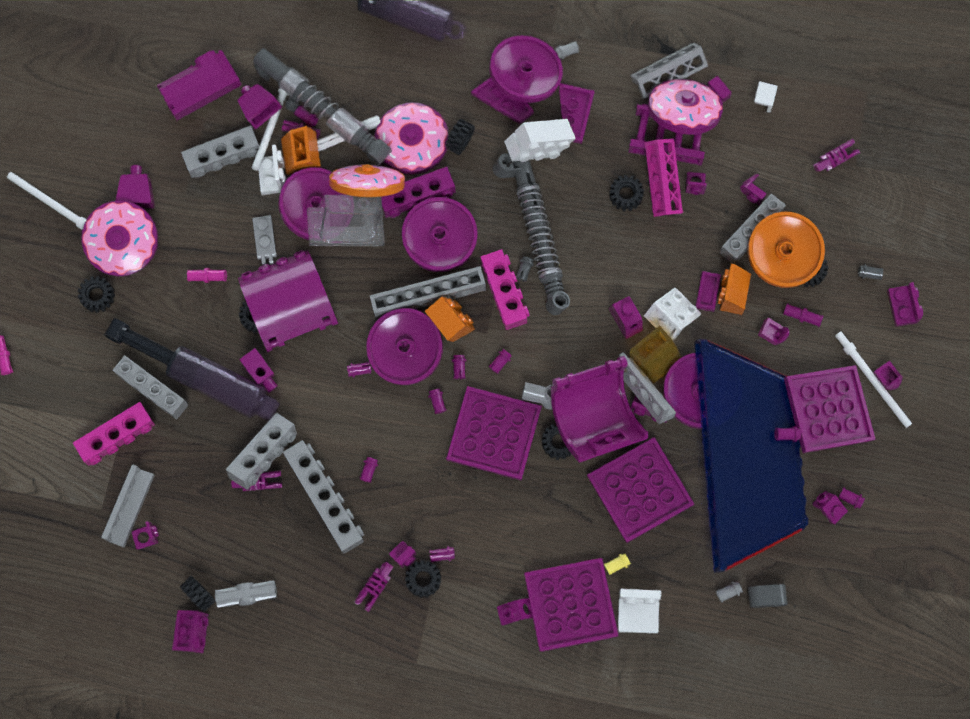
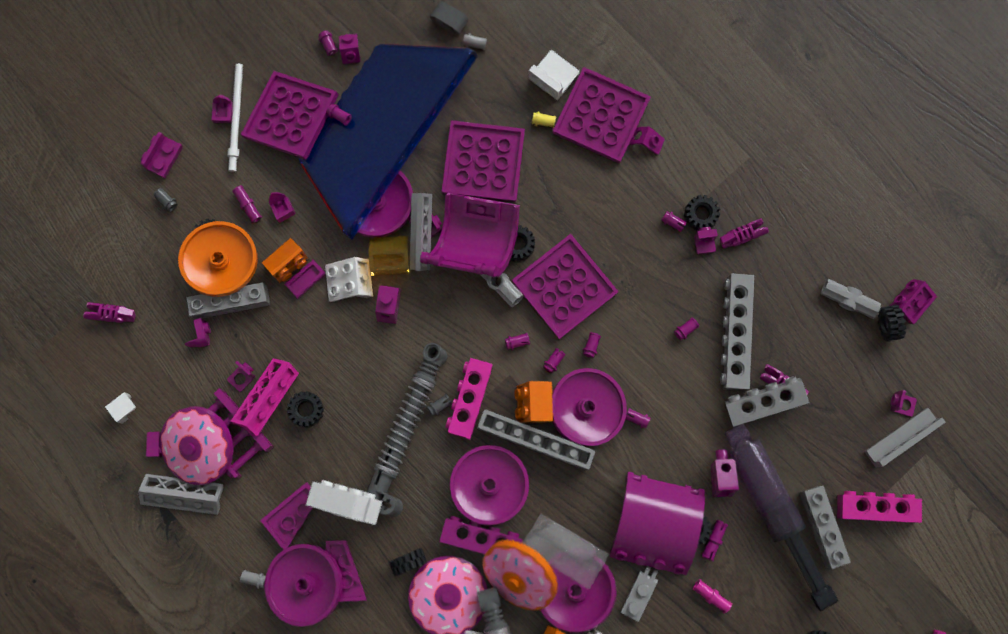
camera: 150 degrees left, 5 degrees up
(232, 318) = (714, 540): none -> magenta pin

